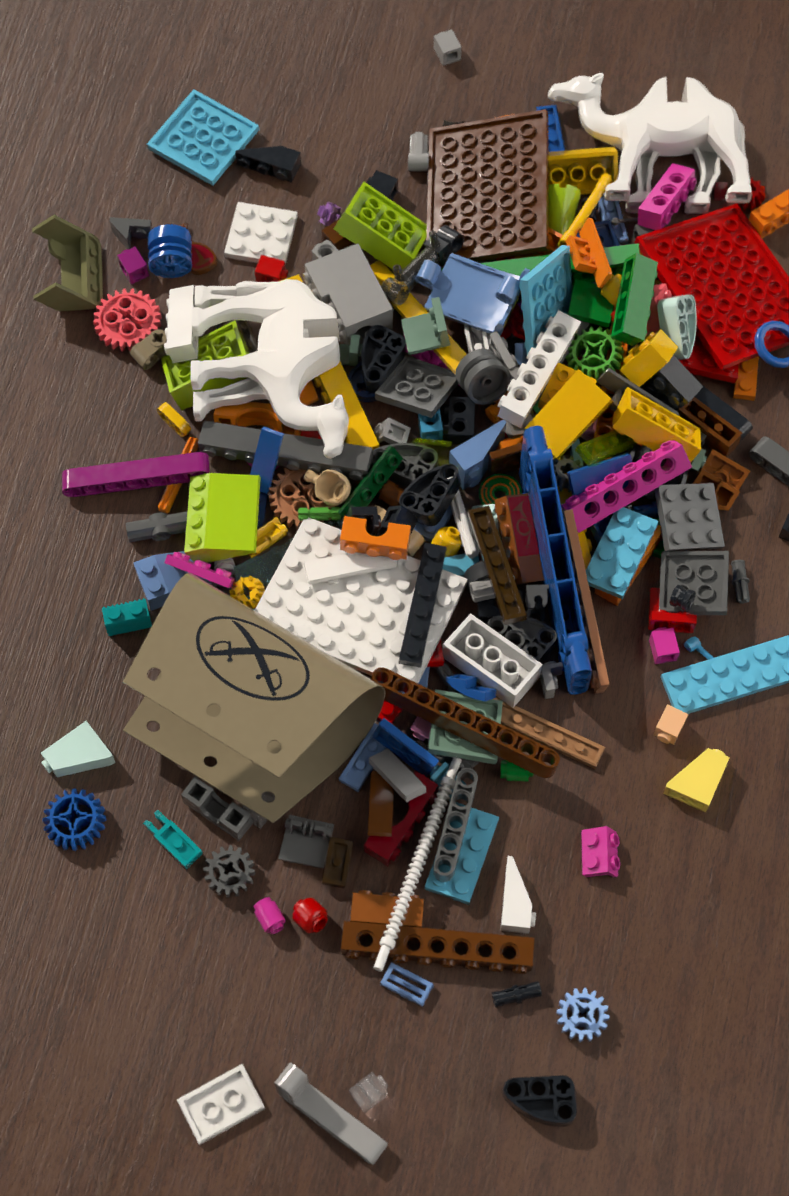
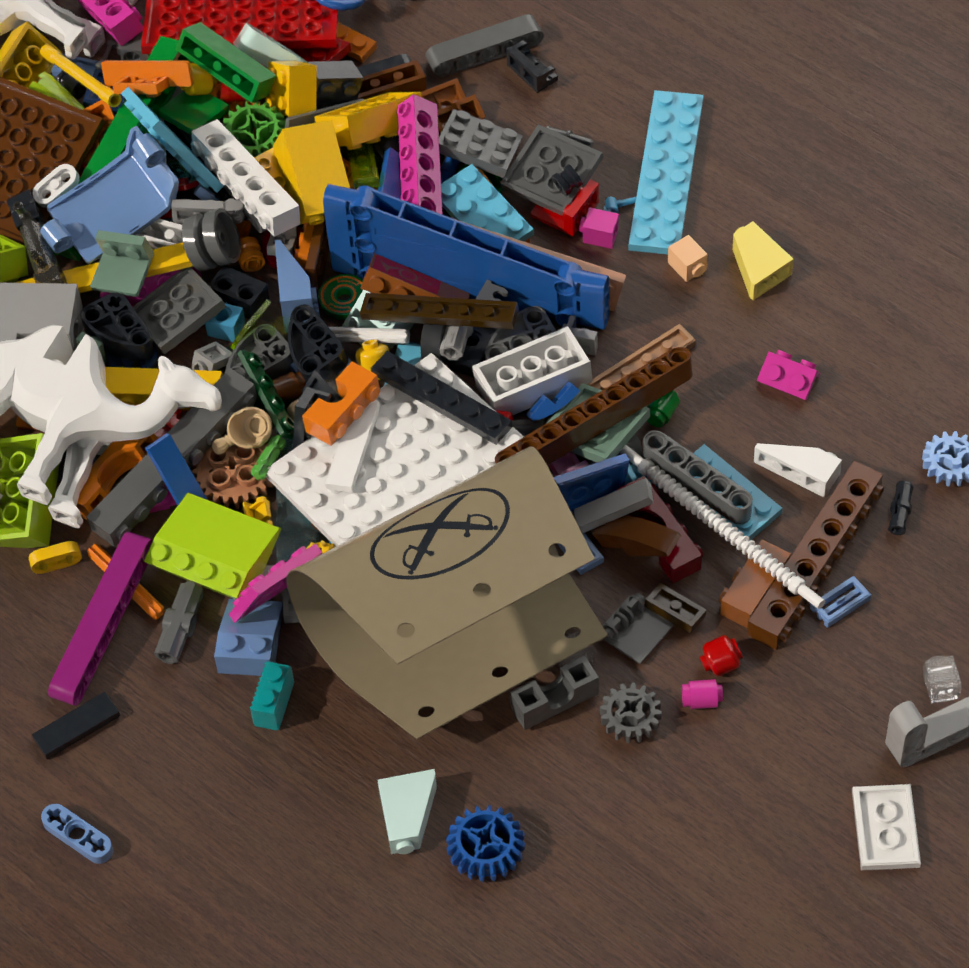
camera: 60 degrees left, 10 degrees down
(50, 503) = (75, 725): none -> black tile
(174, 840) = (563, 754): teal hinge -> none
(477, 249) = (55, 184): none -> white plate

